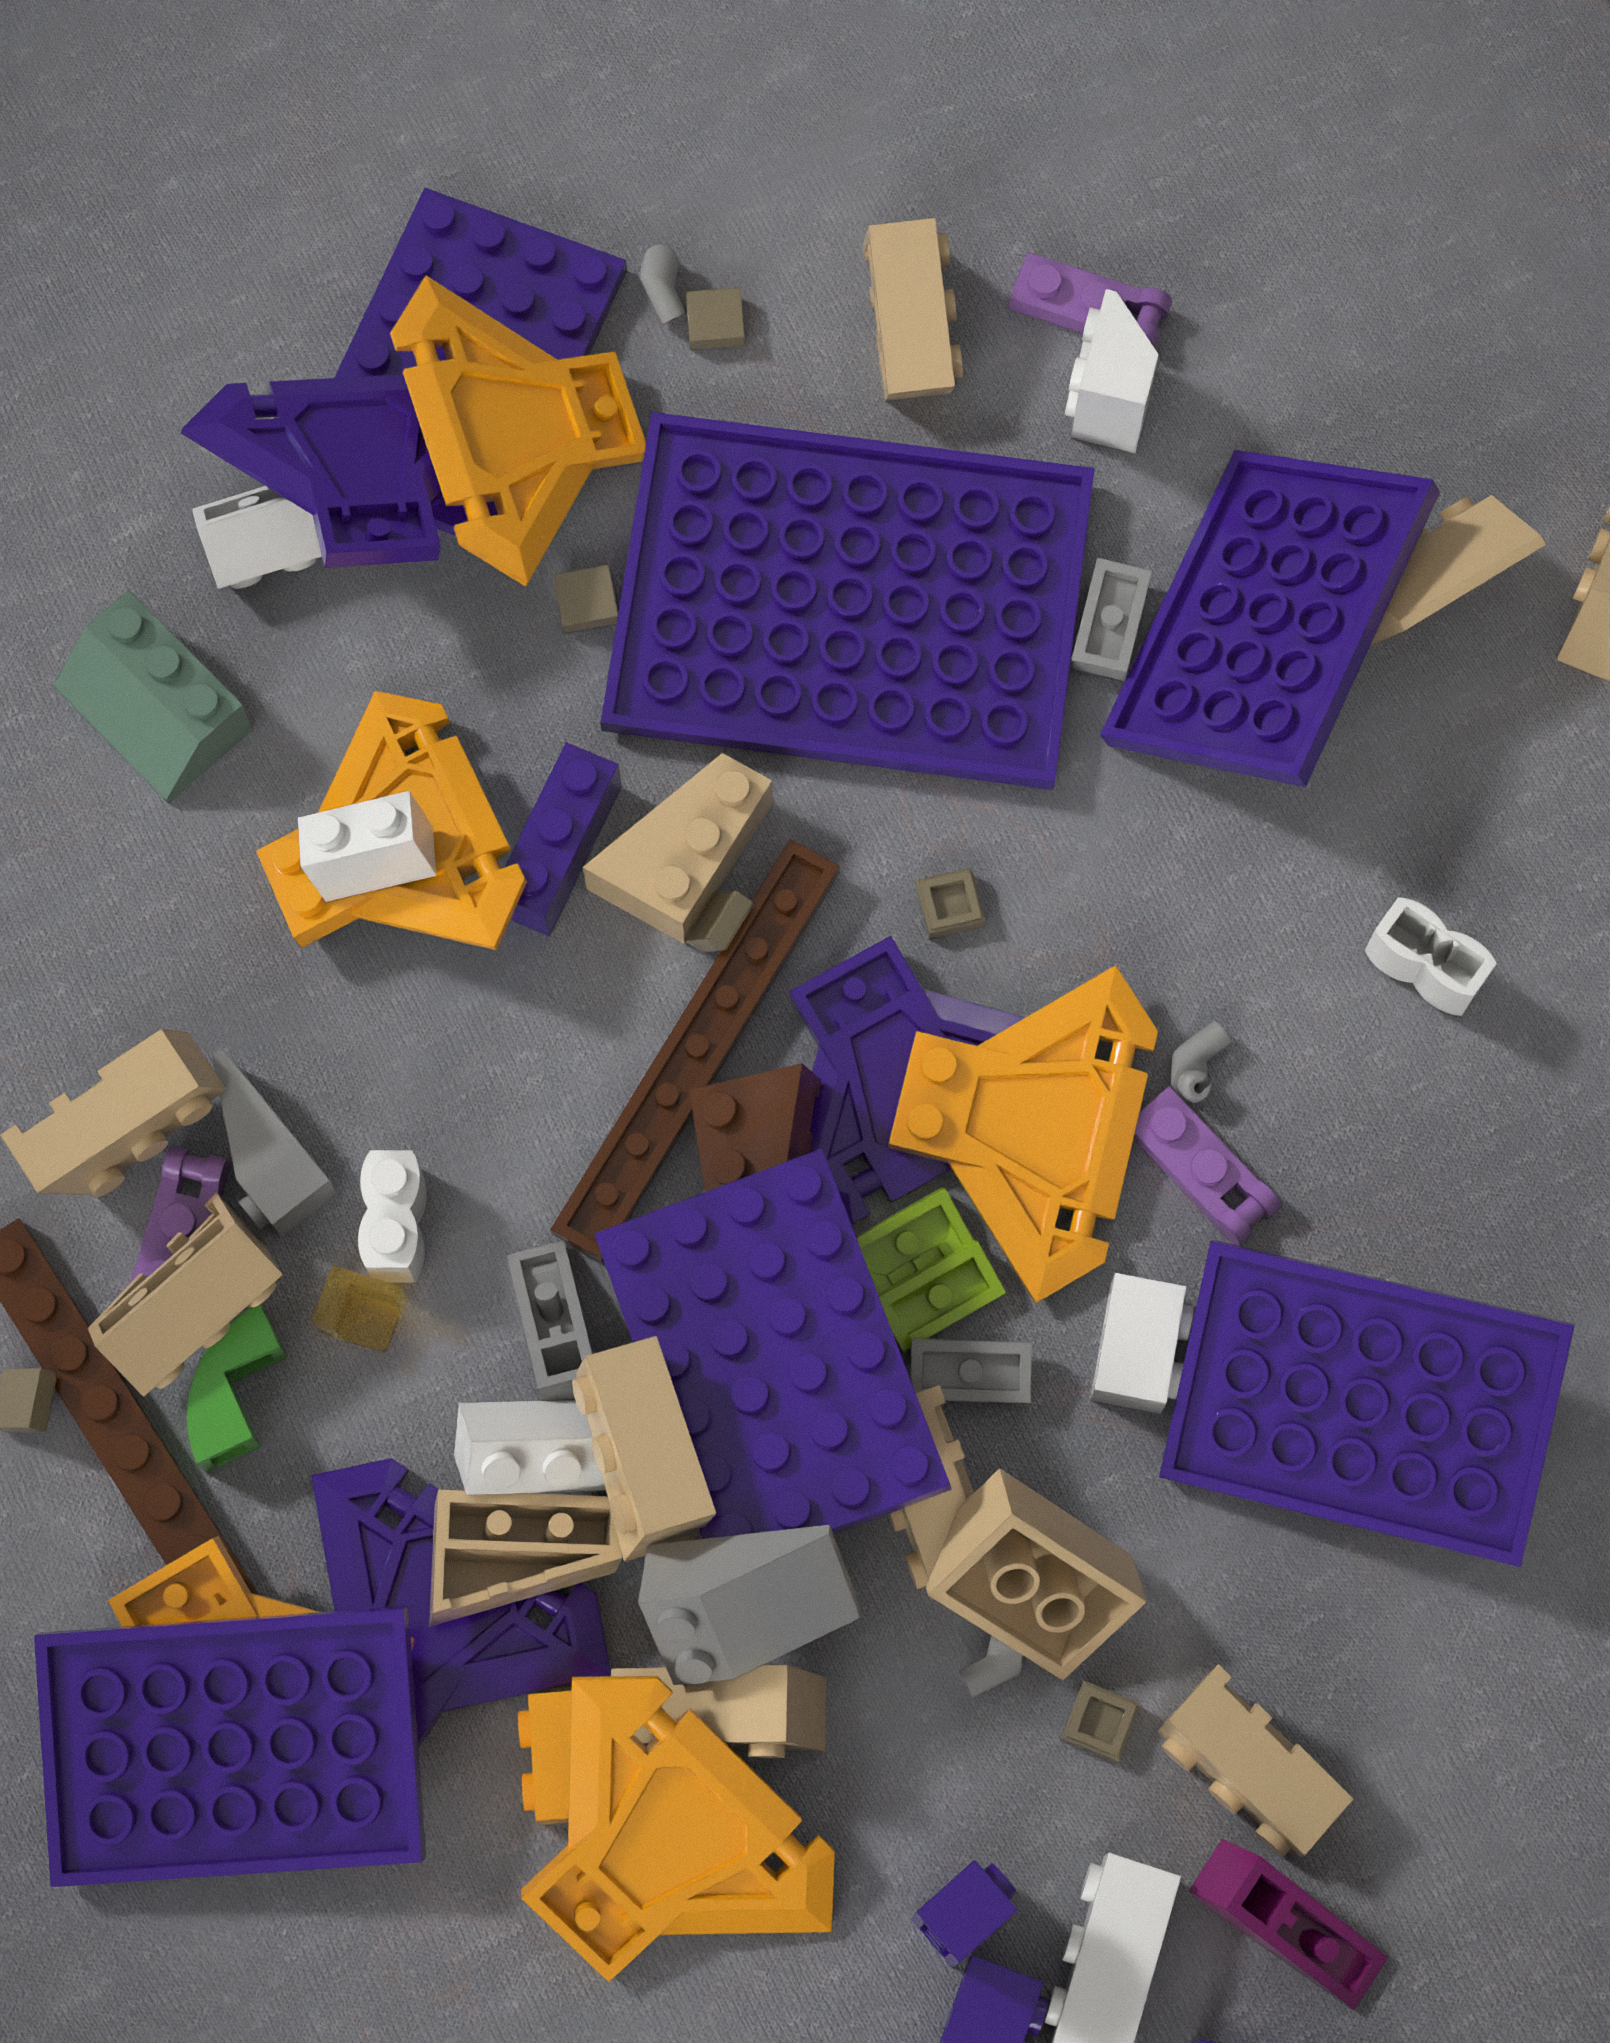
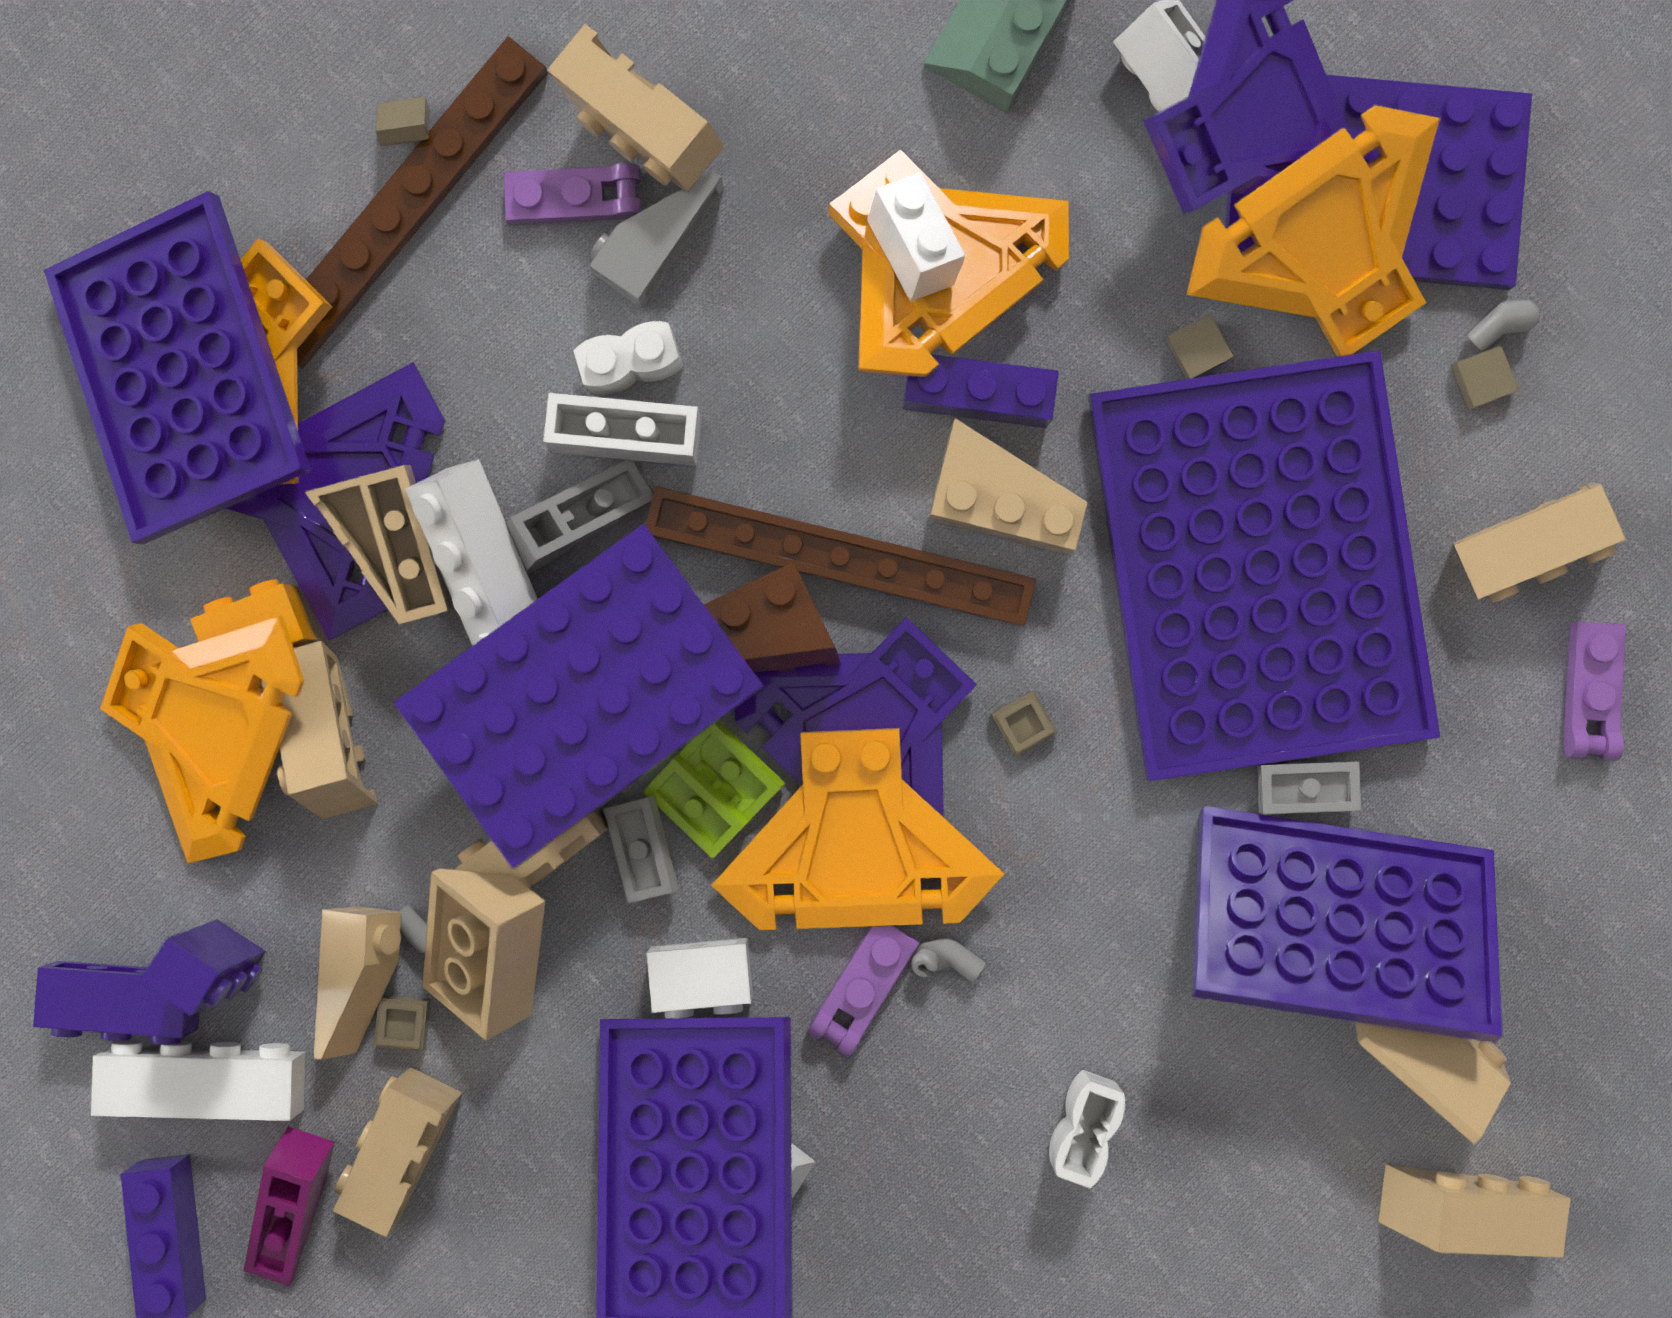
camera: 70 degrees right, 15 degrees up
(186, 1299) = (508, 220): tan wedge -> none
(215, 1415) = (439, 271): bright green brick -> none
(359, 1309) = (550, 355): clear yellow panel -> none
(474, 1243) = (622, 429): none -> white brick
(642, 1447) = (469, 616): tan wedge -> none
(719, 921) = (949, 542): dark tan tile -> none
(743, 1599) = (377, 727): light grey slope -> none
(1015, 1747) = (354, 969): none -> tan slope
(1111, 378) = (1526, 731): white slope -> none

